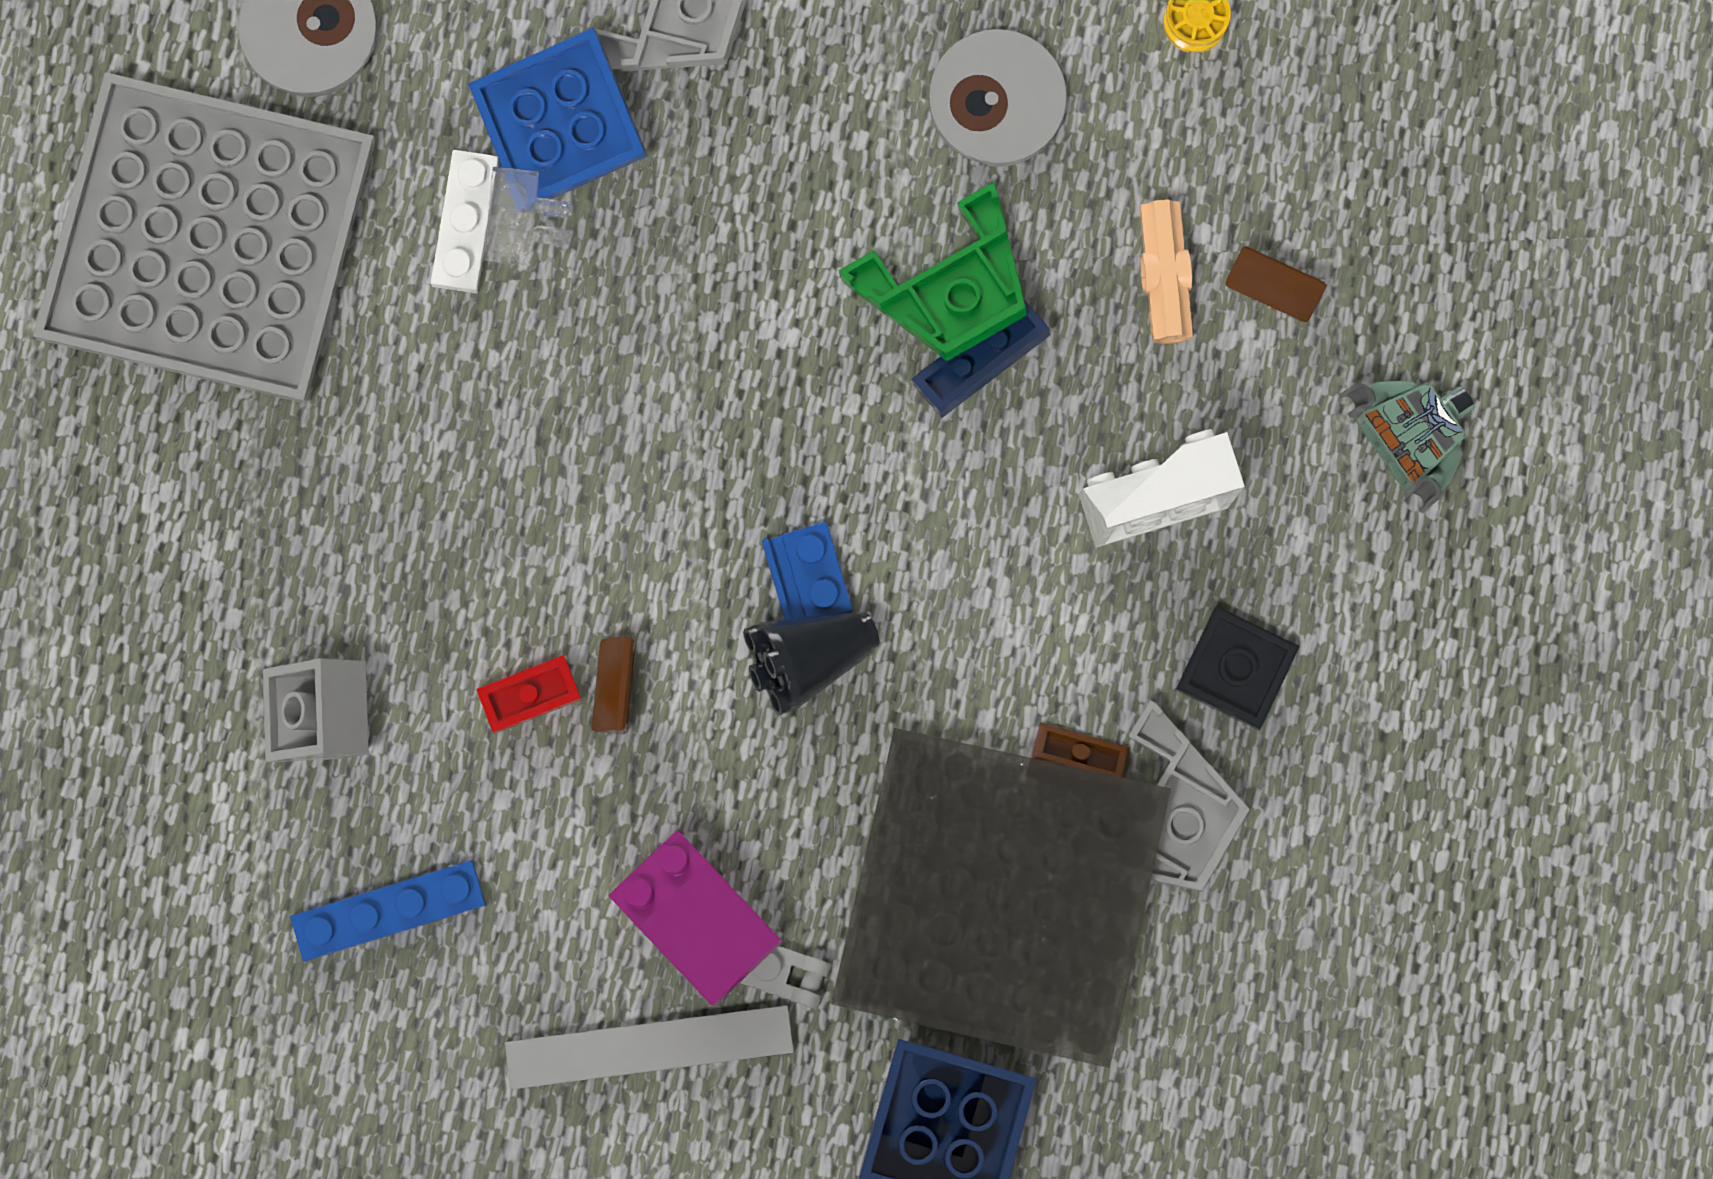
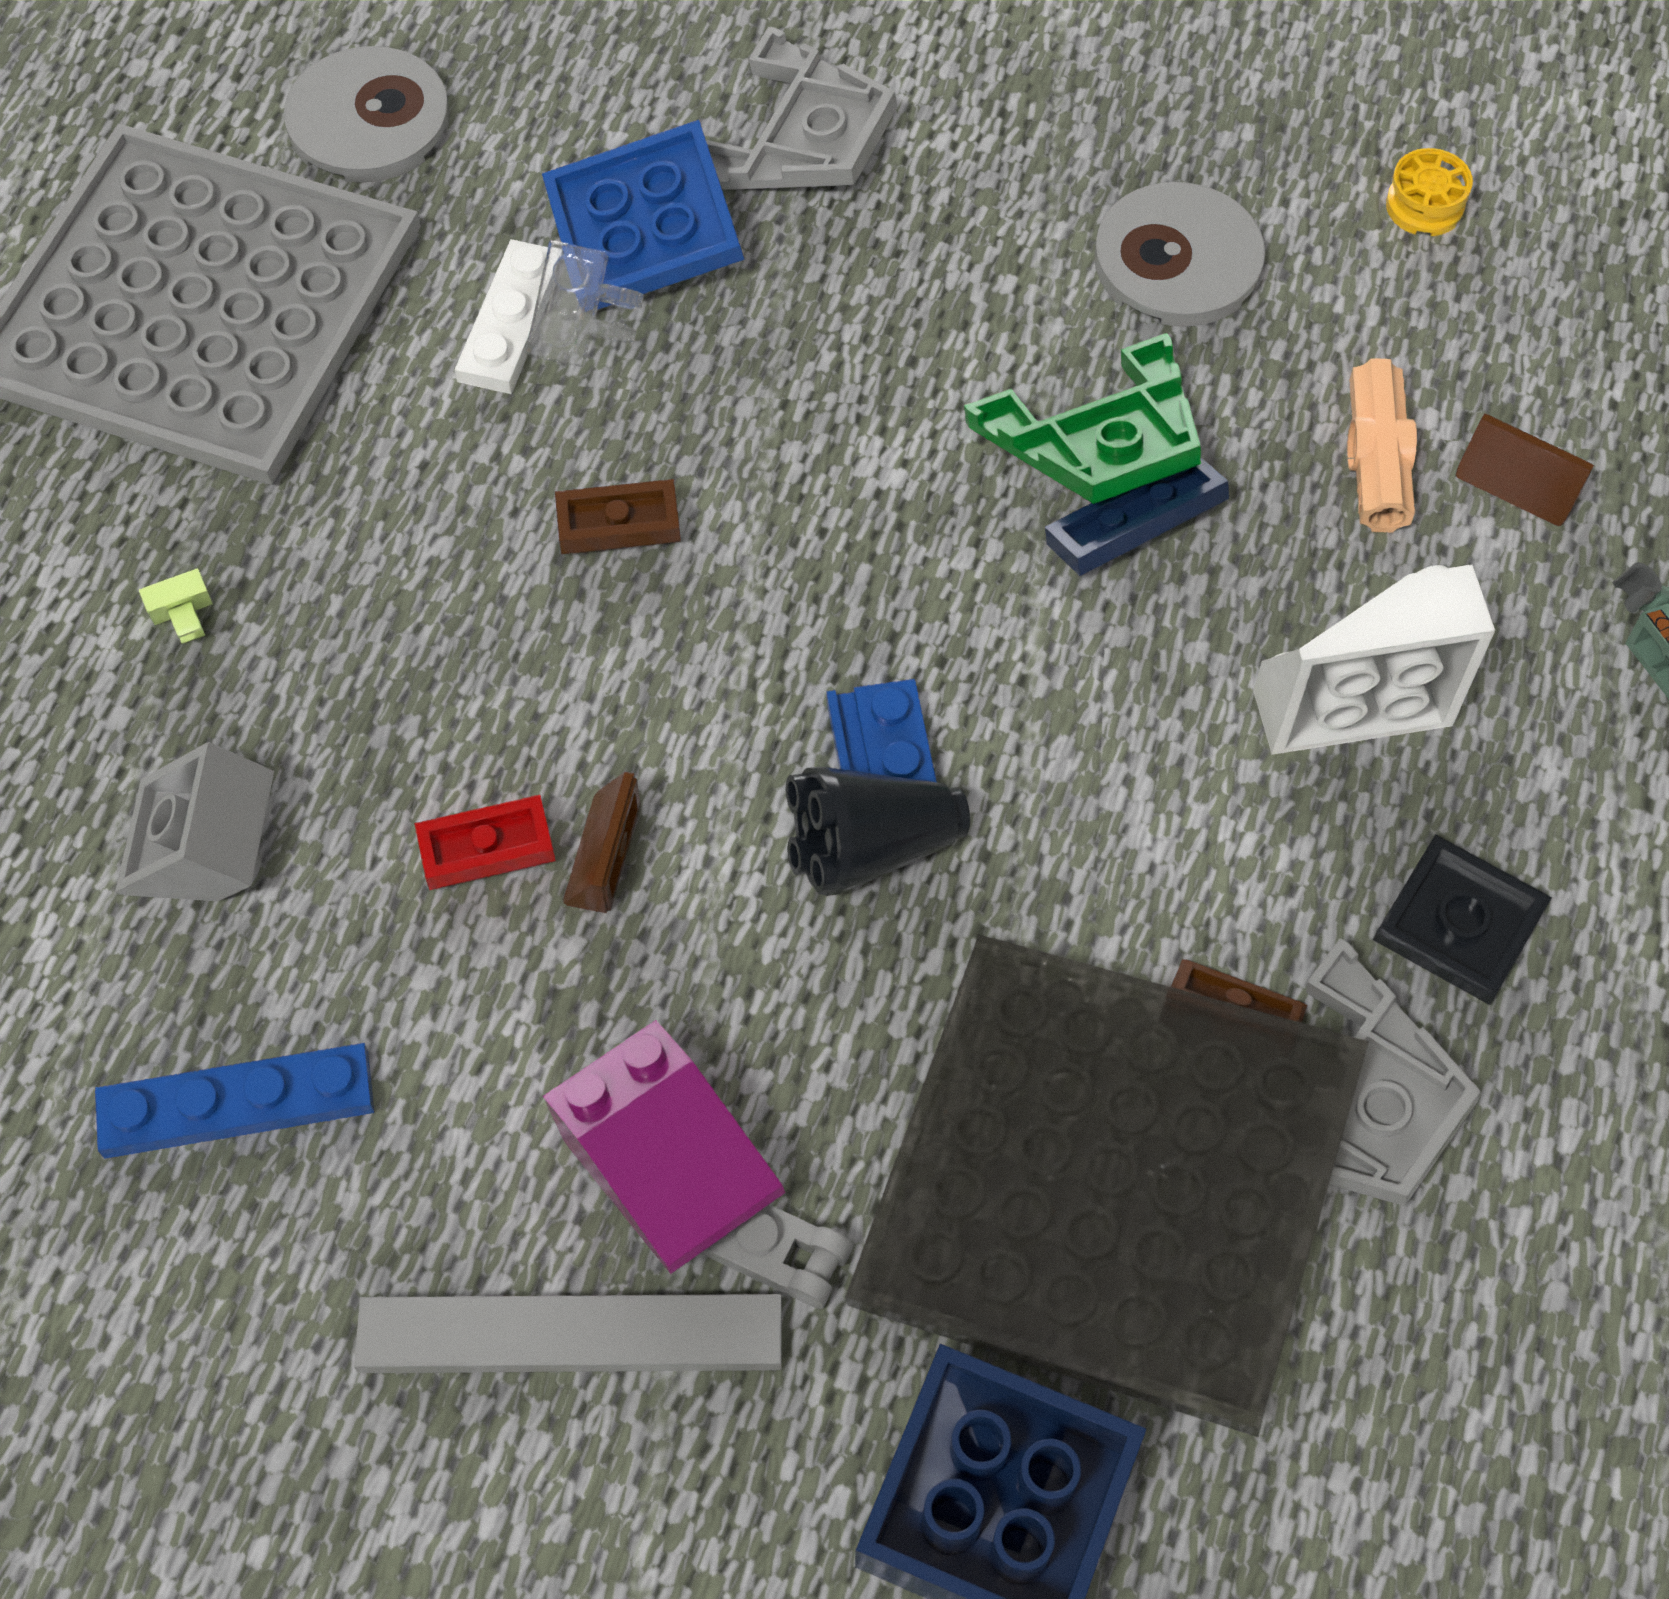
camera: 15 degrees right, 20 degrees down
(260, 523) = (178, 601): none -> yellowish green tile
(581, 405) = (617, 516): none -> reddish brown plate

